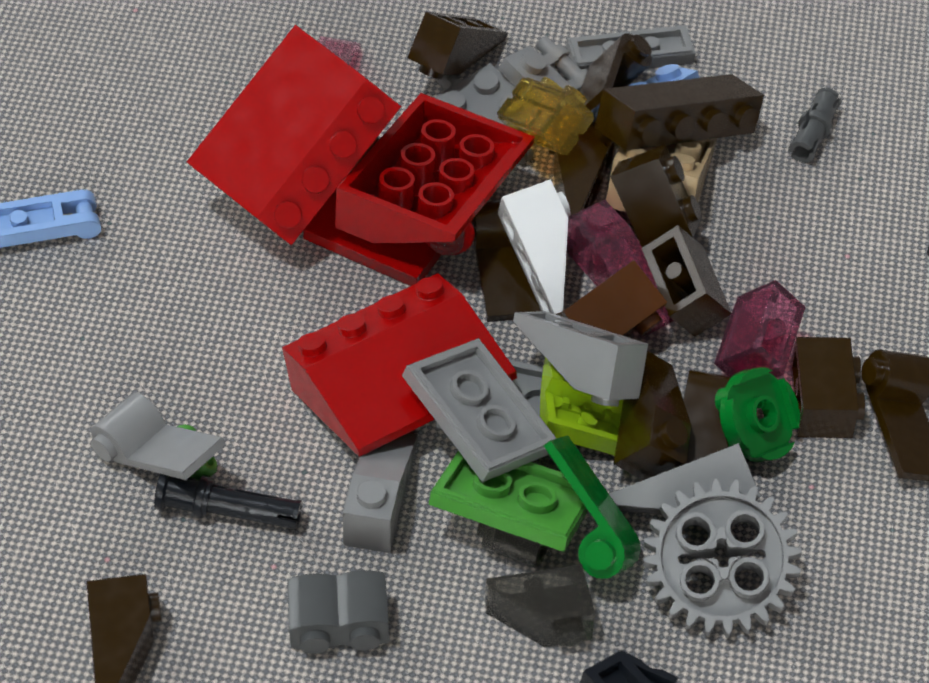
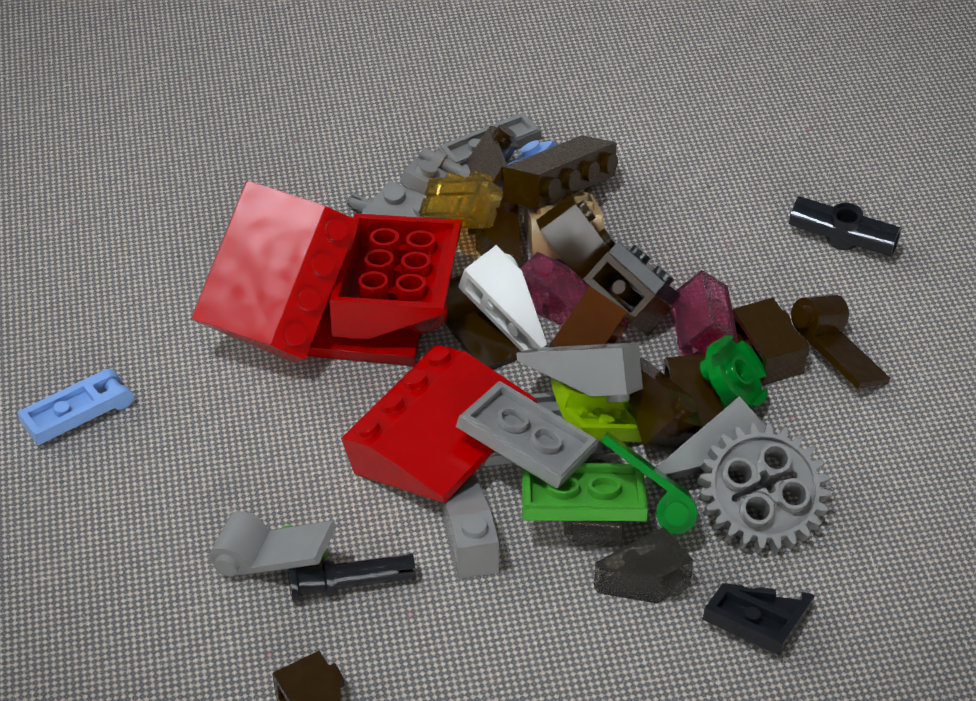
camera: 20 degrees left, 5 degrees down
(338, 611) = (486, 628): dark grey brick -> none
(452, 43) = (354, 174): dark brown slope -> none
(716, 261) = (654, 278): none -> wing
(815, 125) = (657, 157): dark grey pin -> none

